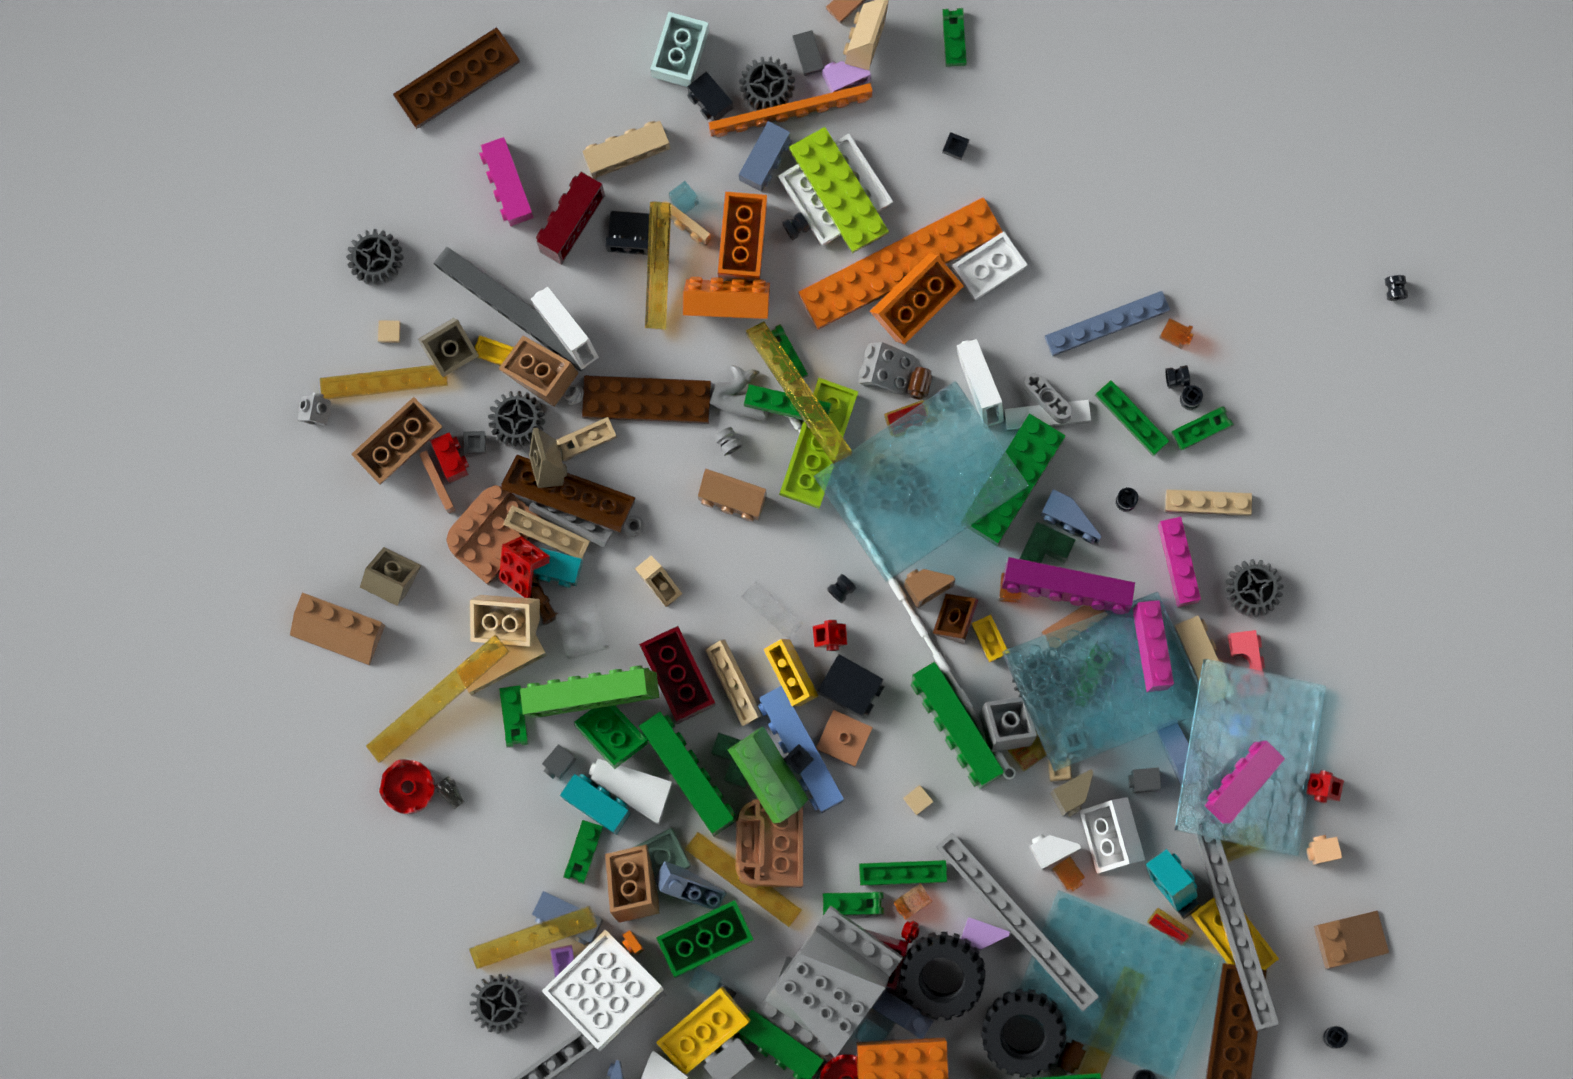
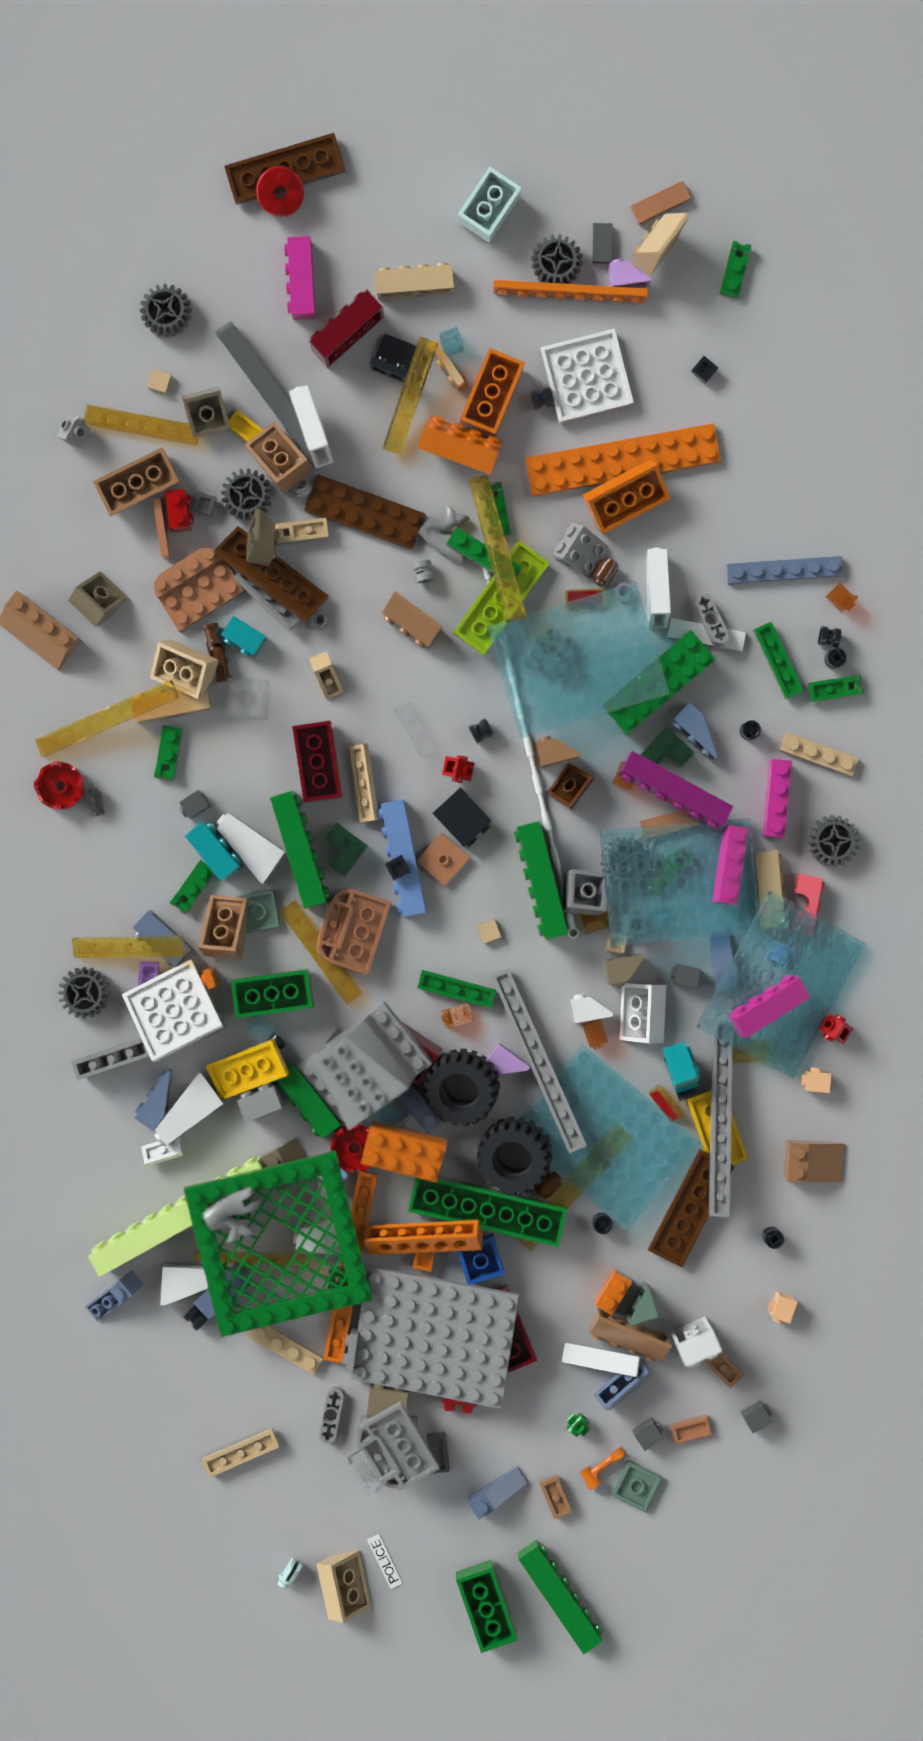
camera: 15 degrees right, 10 degrees up
(444, 102) = (266, 187): none -> red plate
(517, 564) = (210, 621): red bracket -> none
(546, 532) = (242, 603): tan plate -> none
(590, 692) = (236, 754): bright green brick -> none
(611, 734) = (245, 794): green plate -> none
(688, 886) = (271, 944): sand blue slope -> none
(710, 97) = (503, 257): black brick -> none
(765, 156) = (535, 326): sand blue brick -> none
(768, 775) = (368, 873): bright green slope -> none
(791, 672) = (414, 790): yellow brick -> none
(838, 190) = (589, 377): lime plate -> none
(854, 903) = (406, 1000): green plate -> none
(910, 931) = (447, 1039): red plate -> none
(989, 266) = (699, 487): white plate -> none
(989, 638) = (593, 813): yellow plate -> none

